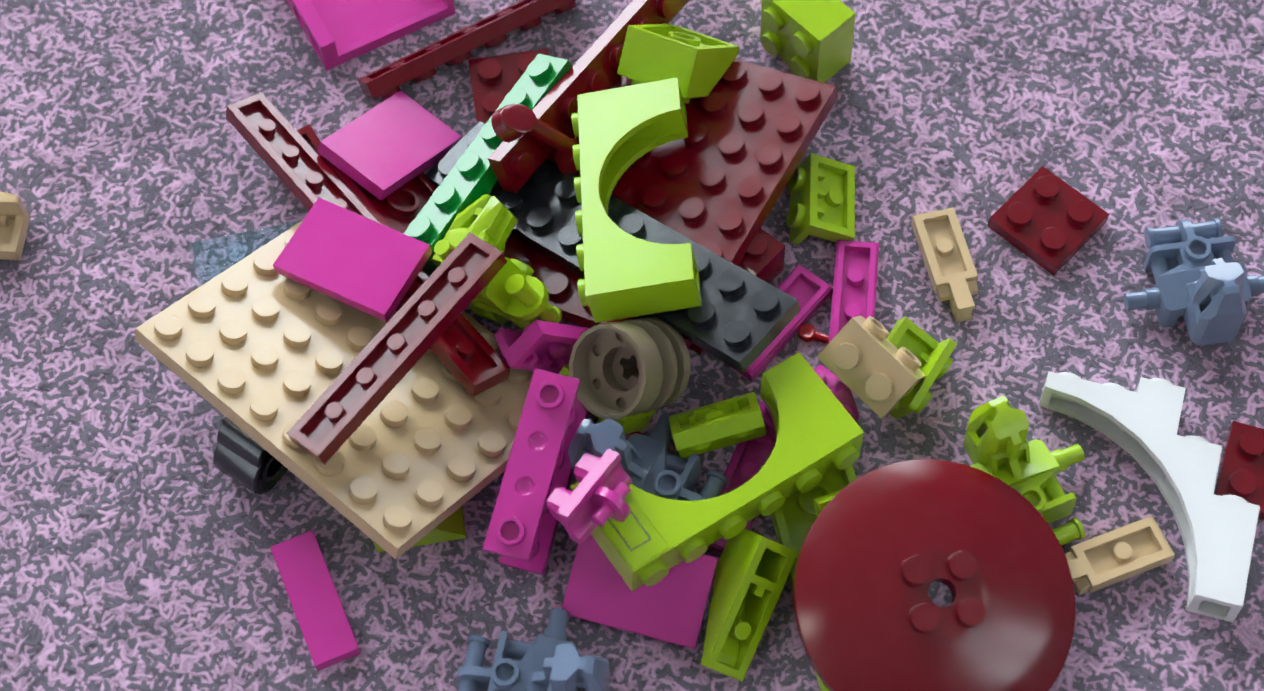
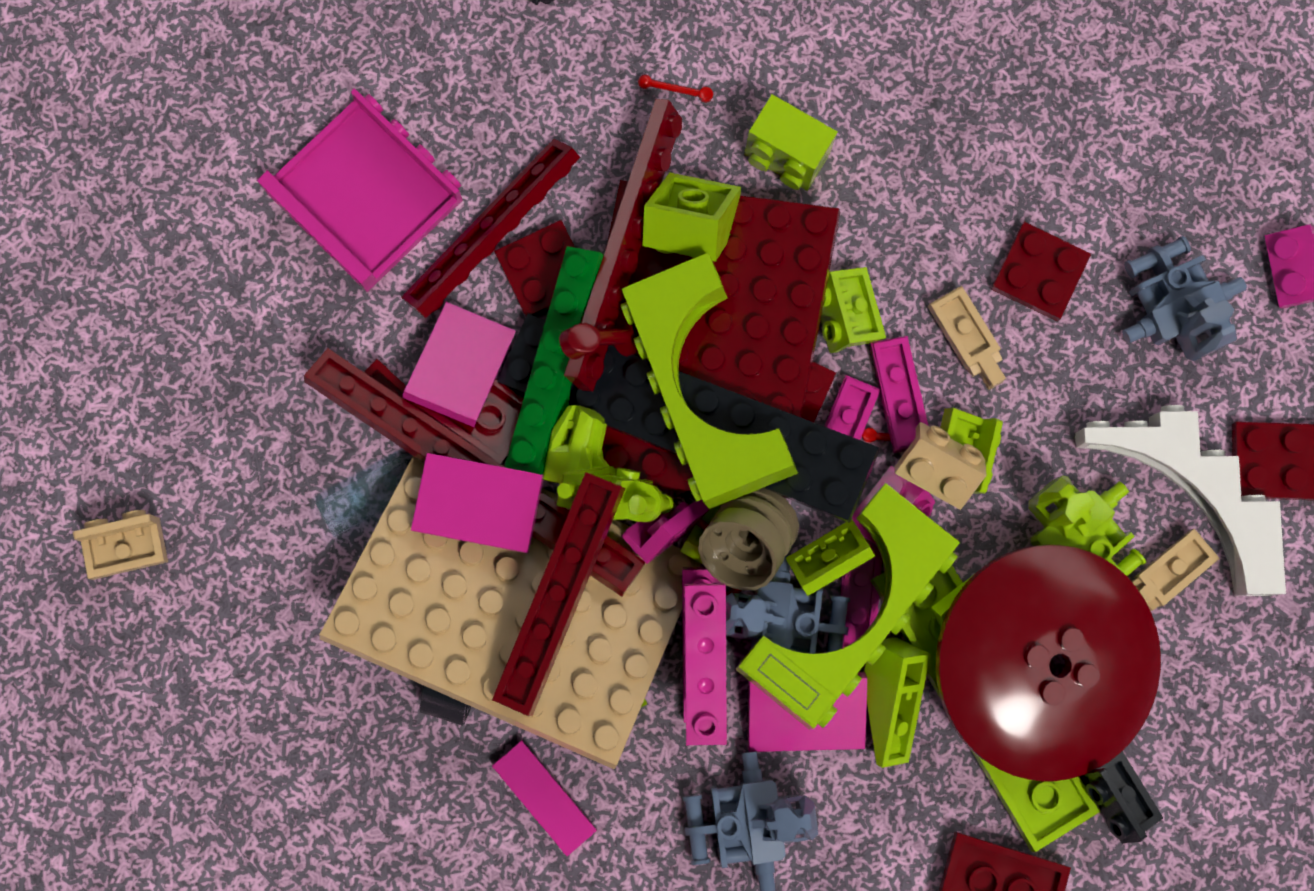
camera: 25 degrees left, 20 degrees up
(595, 499) = (759, 695): dark pink hips -> none

